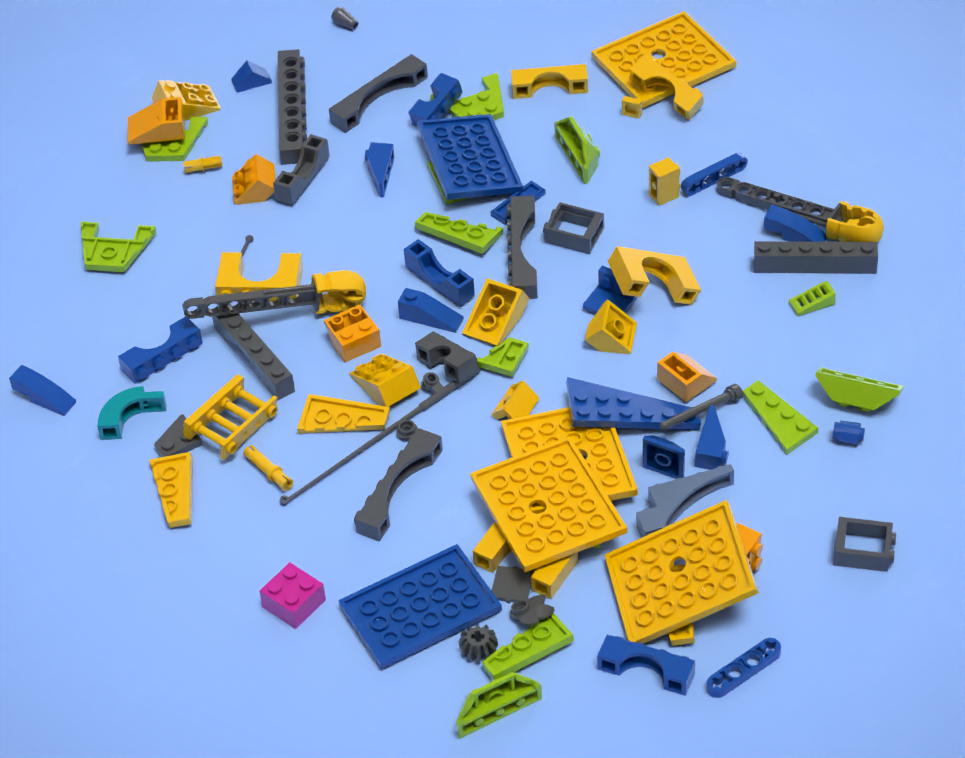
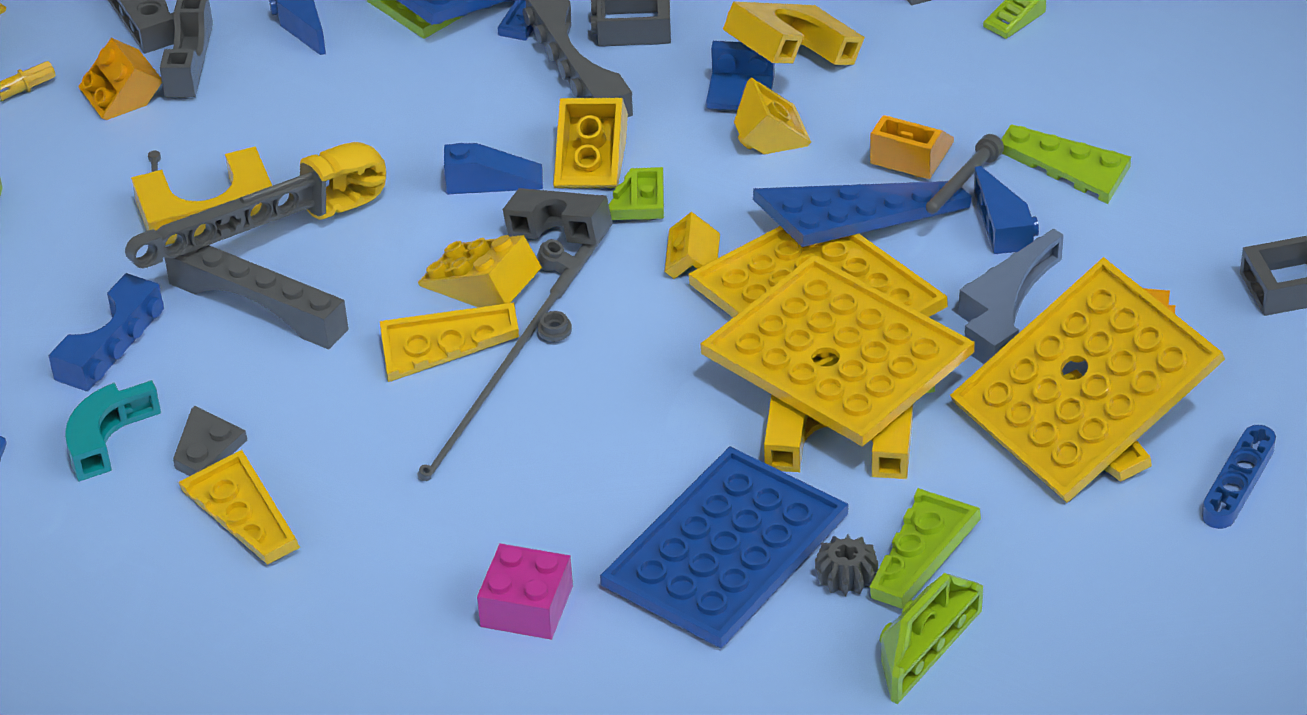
camera: 25 degrees left, 5 degrees down
(222, 401) = (253, 366): yellow fence -> none
(273, 472) = (388, 440): yellow pin -> none
(353, 333) = (397, 226): light orange slope -> none
(419, 453) = (582, 442): dark grey arch -> none
(422, 261) = (443, 111): blue arch -> none
(470, 236) = (467, 63): lime wing -> none
(512, 584) = (841, 475): dark grey piece -> none
(531, 610) = (894, 498): dark grey plate -> none
(620, 655) = (1148, 509): blue arch -> none
(663, 456) = (956, 248): blue slope -> none
(848, 432) = (1176, 149): blue brick -> none
(856, 390) = (1158, 95): lime wedge -> none

